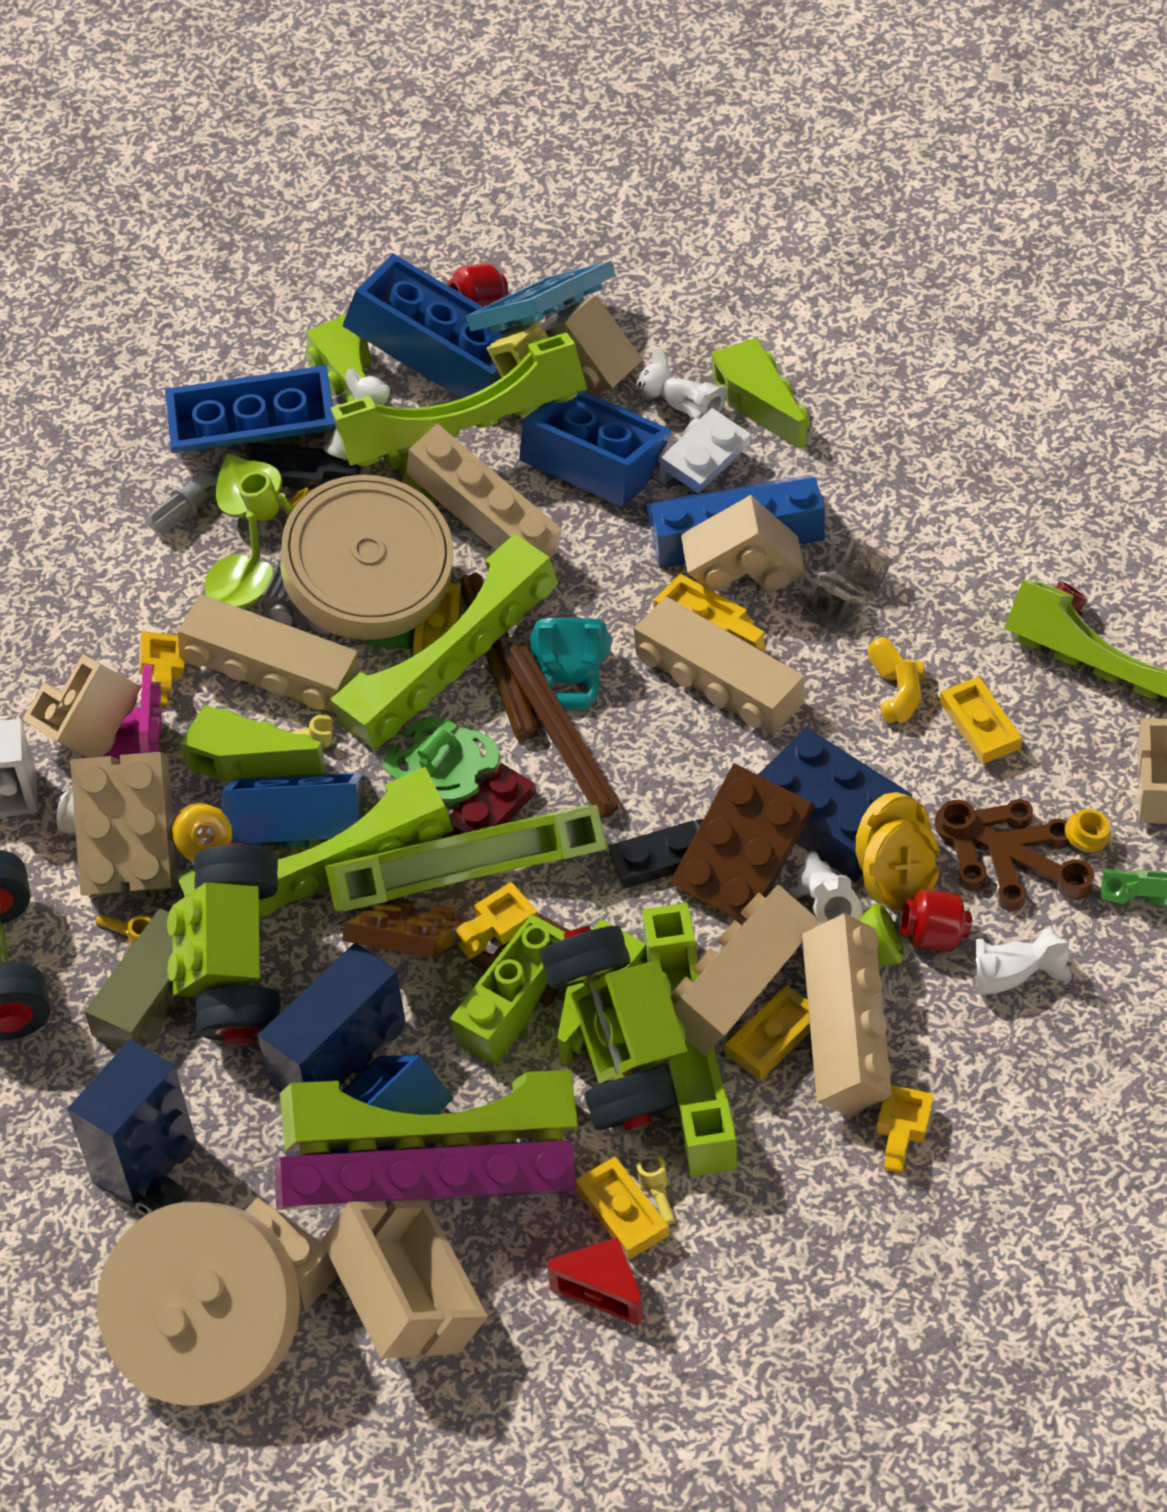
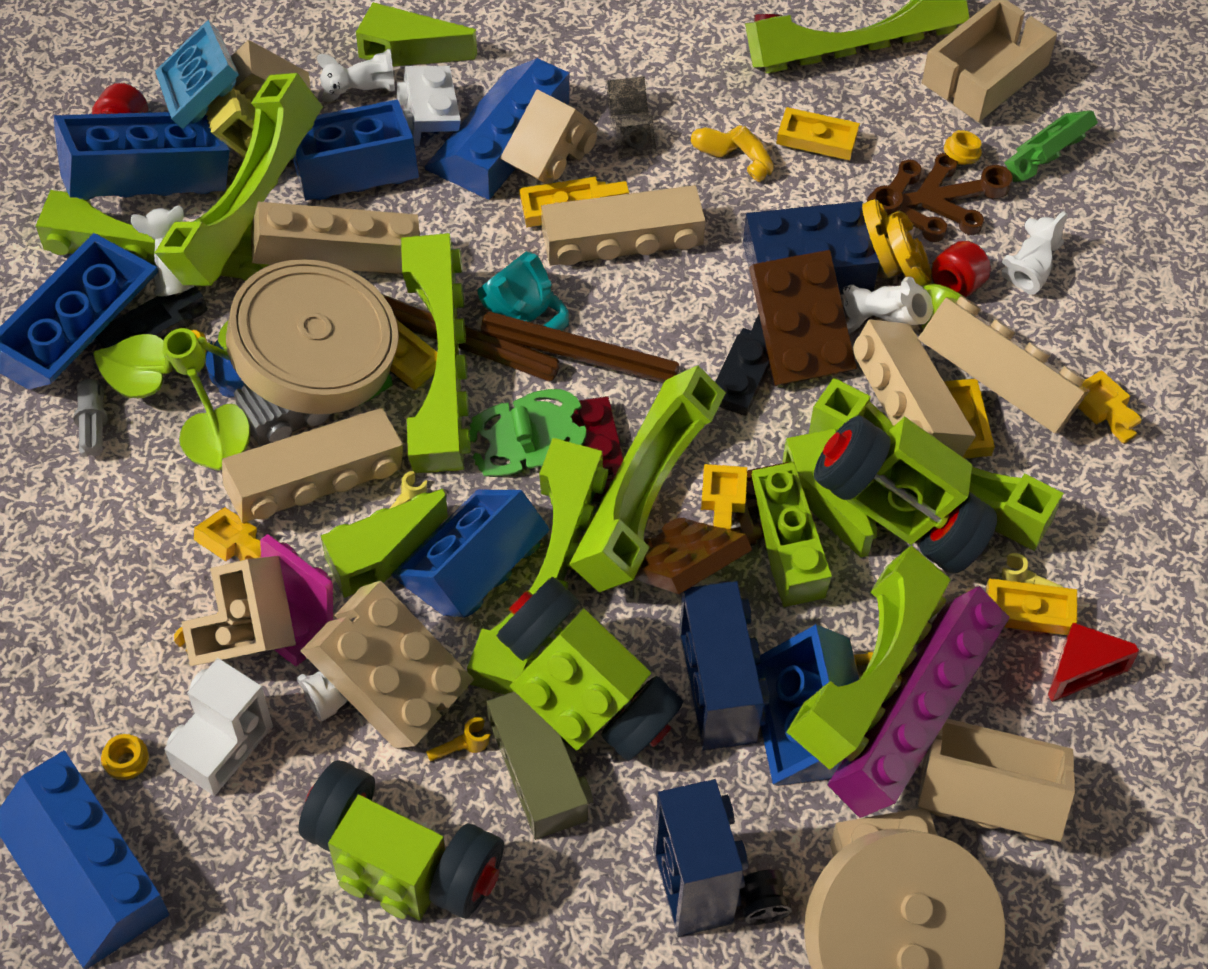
camera: 55 degrees left, 5 degrees up
(192, 819) = (456, 618): yellow head -> none

